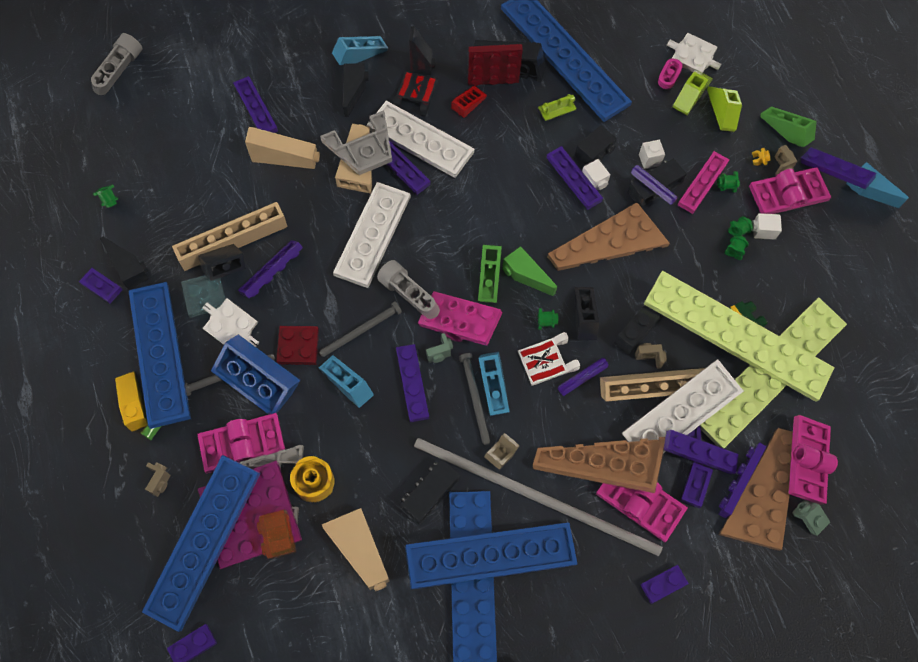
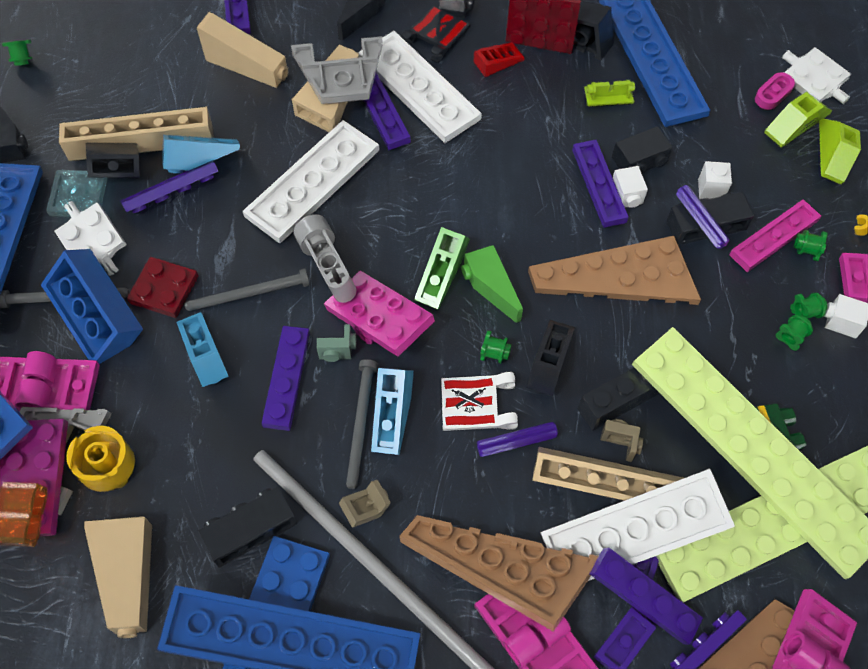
camera: 20 degrees right, 5 degrees down
(277, 238) = (190, 152): none -> dark azure slope

